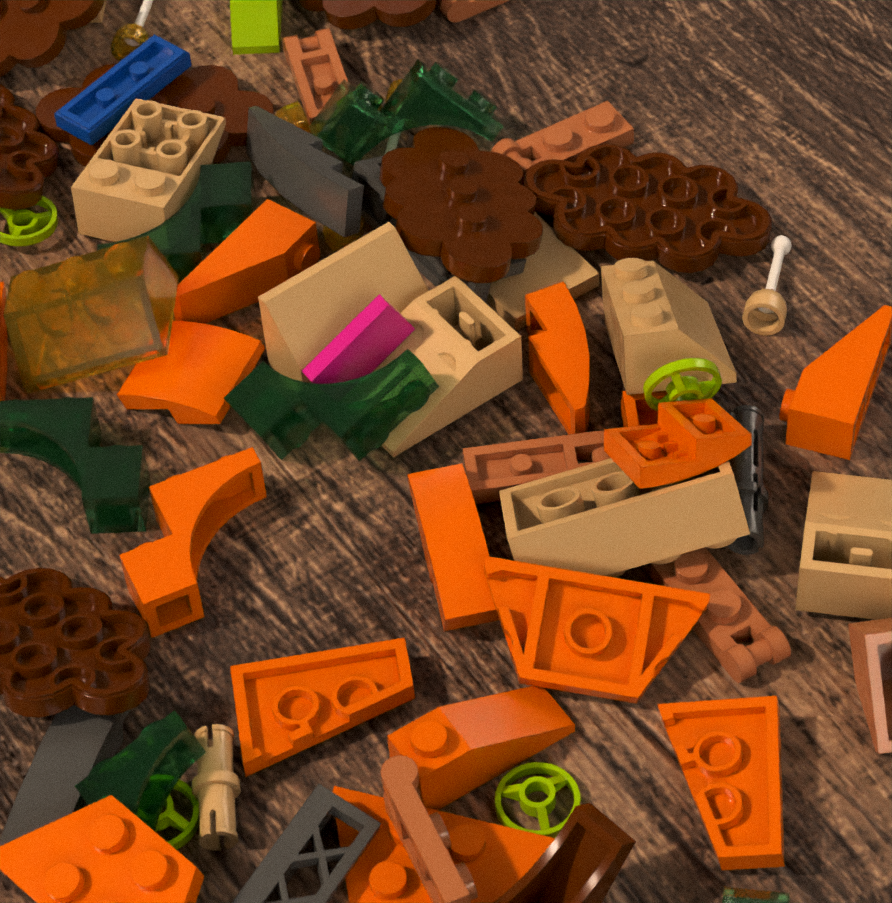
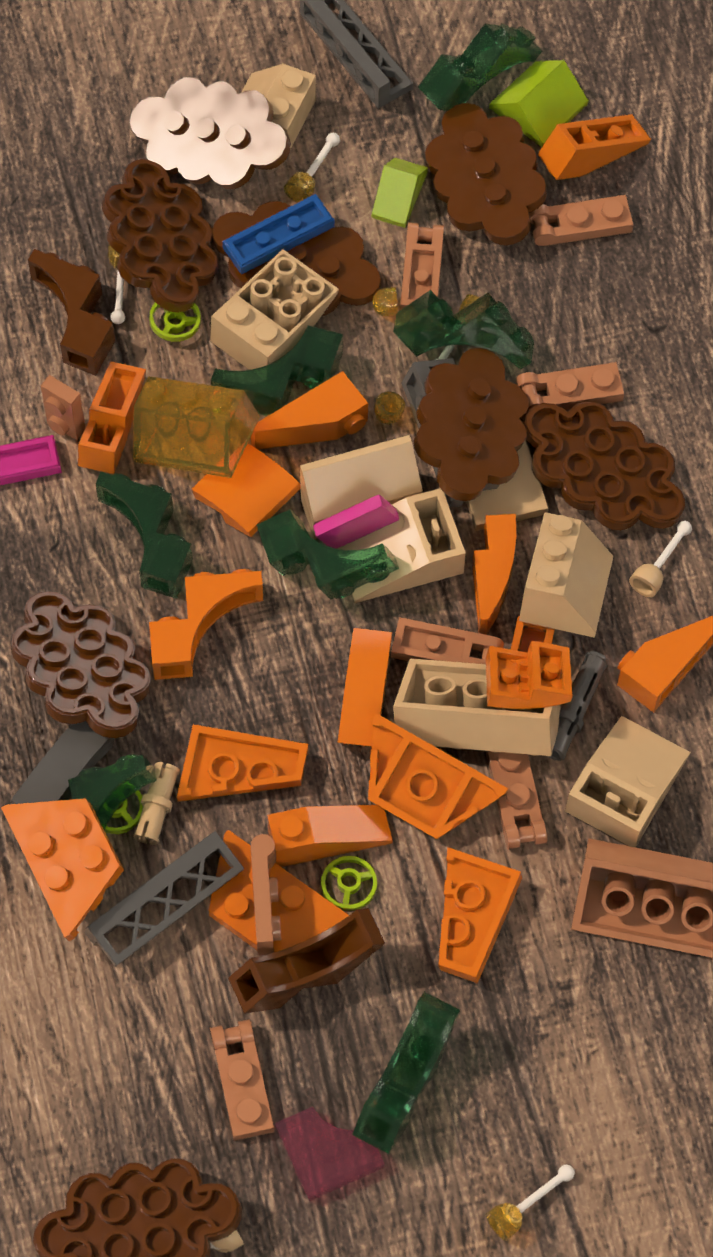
camera: 15 degrees right, 15 degrees up
(302, 172) = (374, 354): dark grey slope -> none
(683, 387) = (552, 632): lime piece -> none

